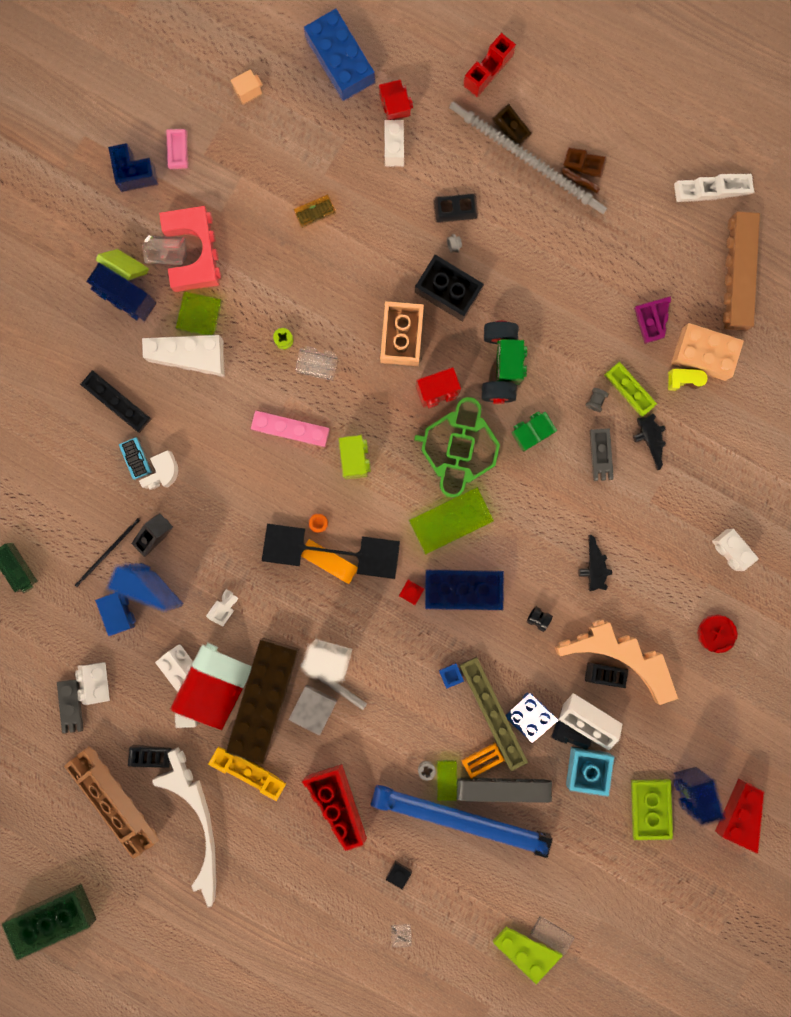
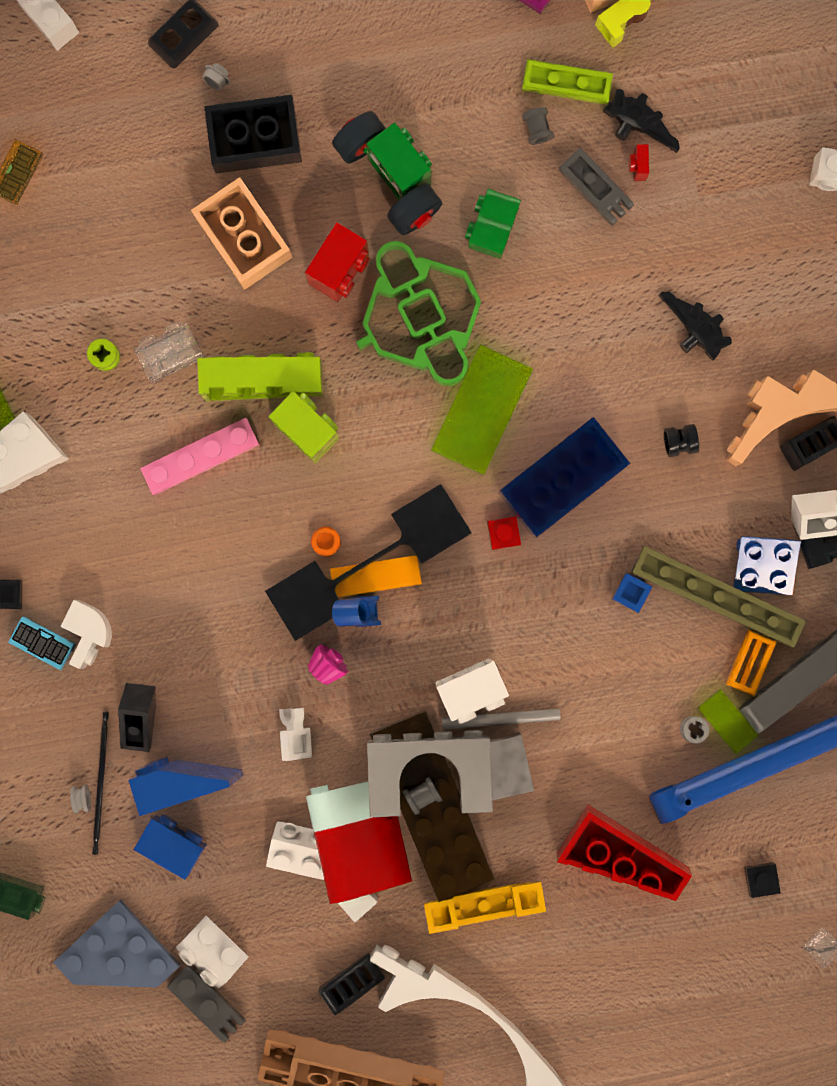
camera: 40 degrees left, 0 degrees up
(46, 644) = (117, 953): none -> sand blue plate
(90, 552) = (80, 799): none -> light grey bush
(260, 692) = (422, 795): none -> dark grey bush
(267, 586) = (327, 664): none -> dark pink piece
(299, 689) = (467, 753): none -> light grey arch
(304, 571) = (356, 612): none -> blue piece
(351, 413) = (259, 377): none -> lime wedge
(633, 460) = (639, 162): none -> red plate

